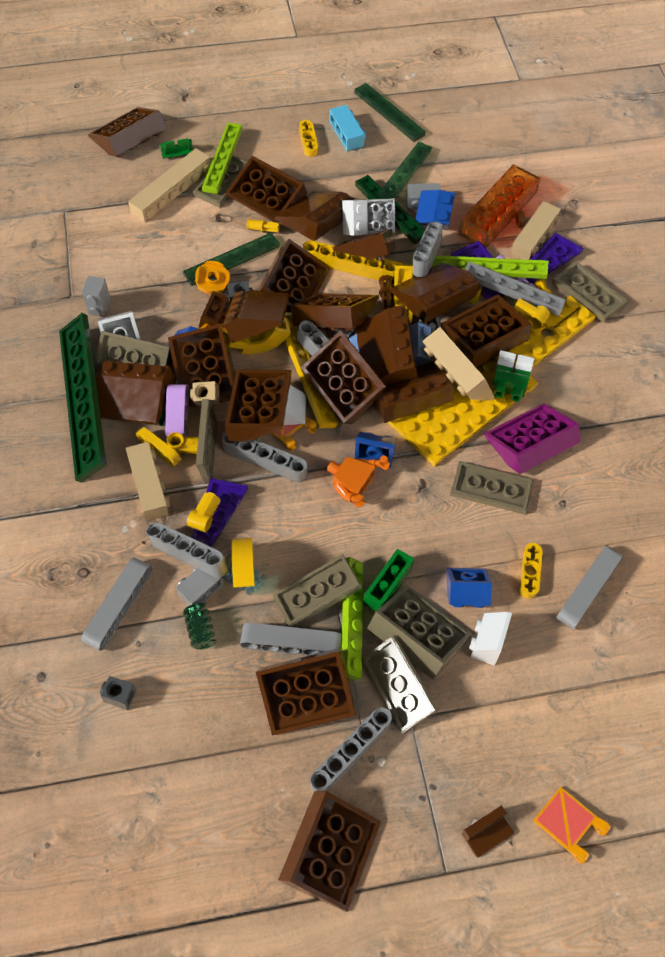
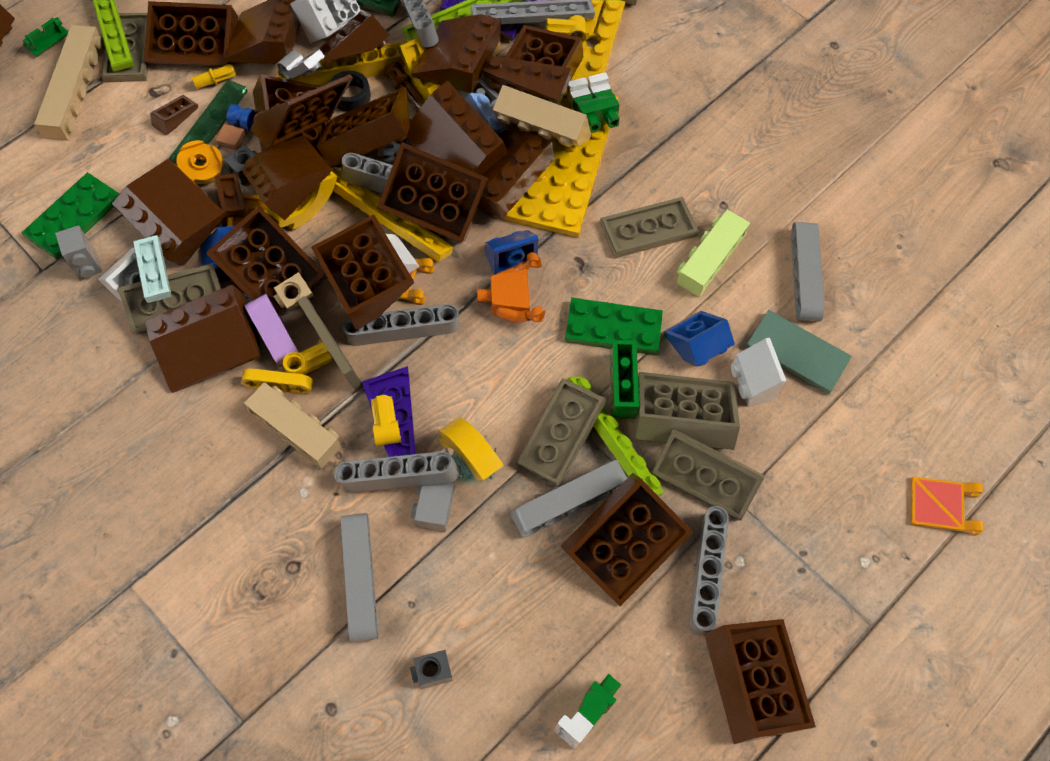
camera: 35 degrees left, 5 degrees up
(82, 398) = (148, 376): dark green plate -> none
(116, 269) = (80, 205): none -> green plate
(128, 329) = (152, 269): none -> light aqua plate
(169, 299) = (172, 208): none -> reddish brown slope
(194, 788) = (595, 703): none -> hips
(198, 626) = (466, 545): clear green piece -> none
(215, 237) = (167, 119): none -> reddish brown slope
(245, 271) = (230, 136): none -> nougat tile
(260, 261) = (241, 117): none -> blue wheel
(294, 277) = (299, 113): none -> reddish brown slope
(317, 243) = (295, 65): none -> light grey plate
(346, 270) = (349, 103): none -> black tyre
(403, 532) = (601, 322): none -> green plate
(475, 336) = (538, 78): none -> reddish brown wing
(488, 832) = (882, 561): reddish brown panel -> none
(525, 577) = (743, 297): yellow beam -> none
(528, 529) = (712, 253): none -> yellowish green brick
(533, 437) = (654, 154): magenta slope -> none
(540, 642) = (802, 352): none -> sand green tile

